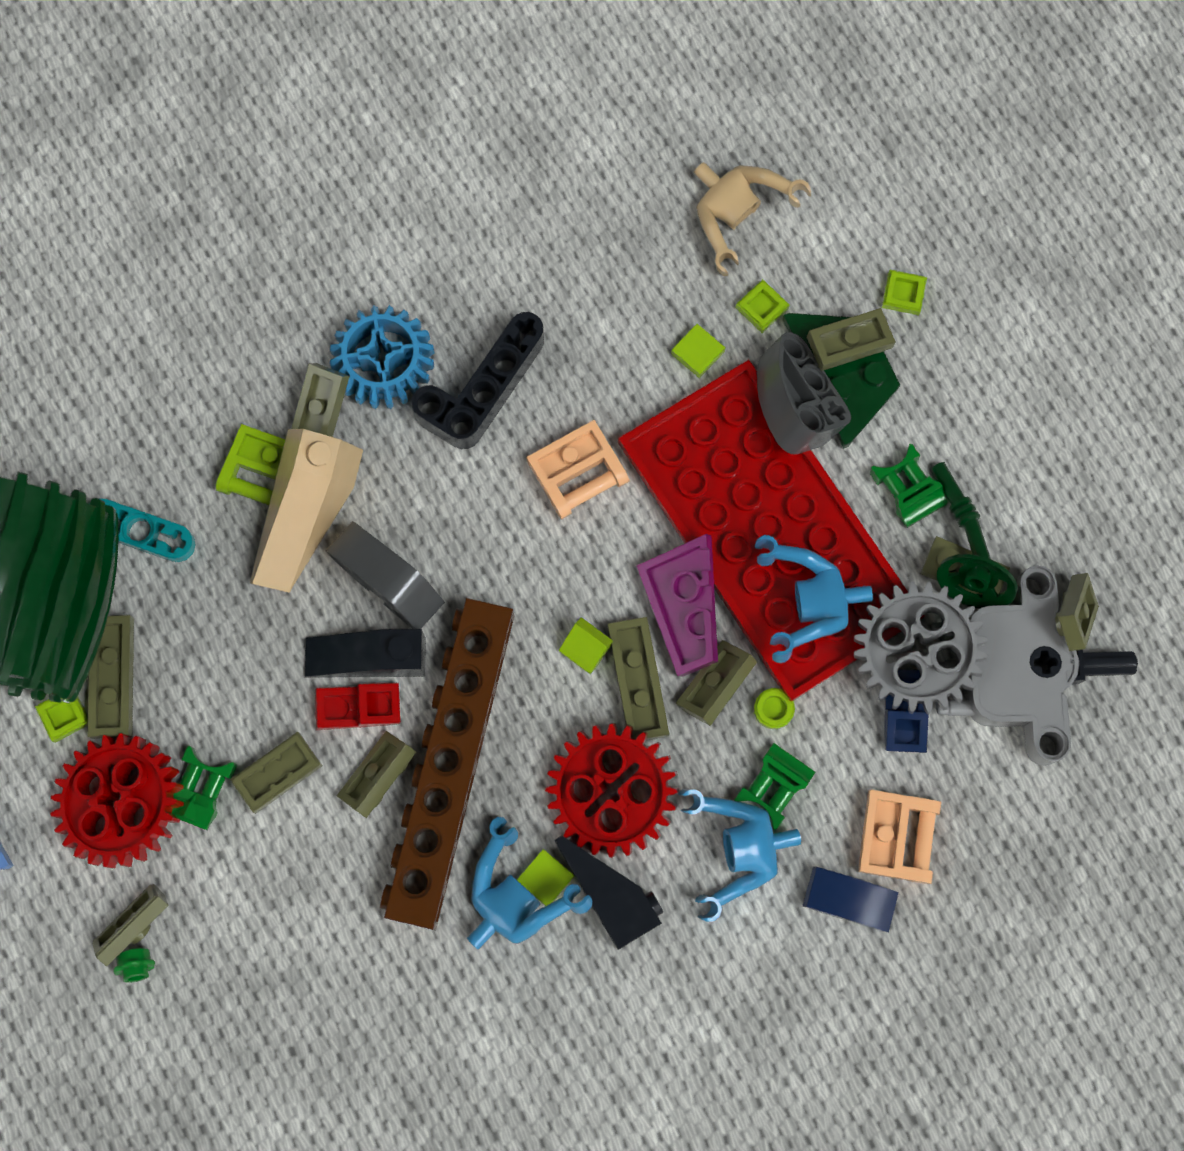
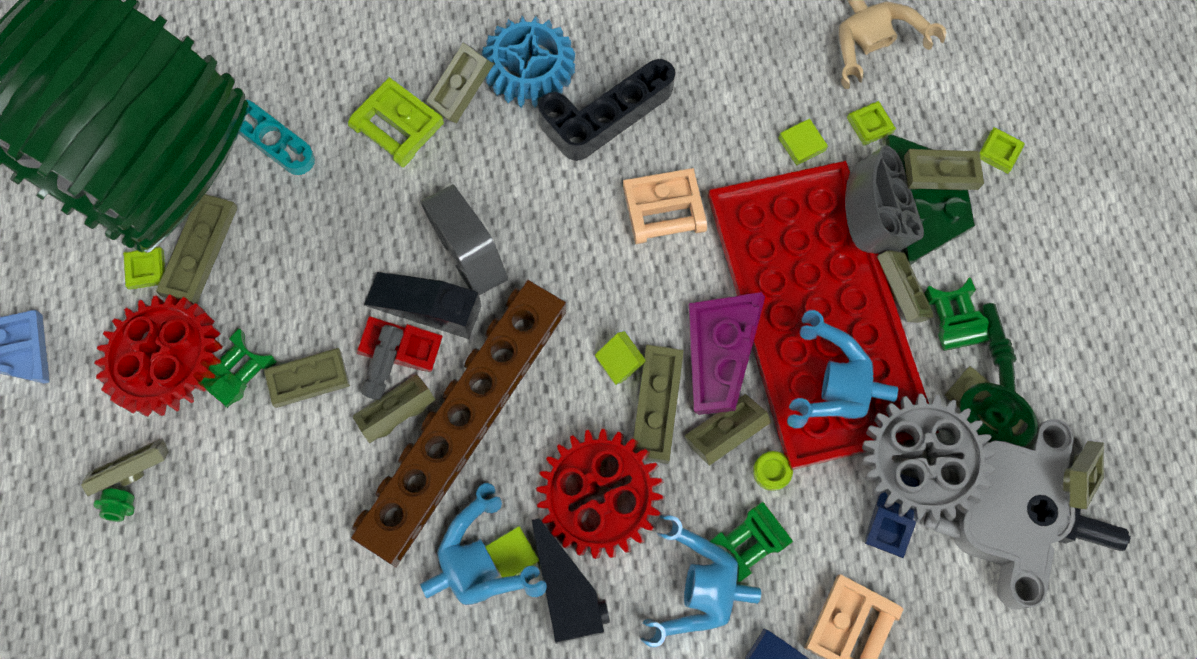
camera: 15 degrees right, 5 degrees down
(307, 495) = (423, 152): tan wedge -> none
(348, 731) = (382, 362): none -> dark grey axle
(848, 474) = (905, 286): none -> olive plate

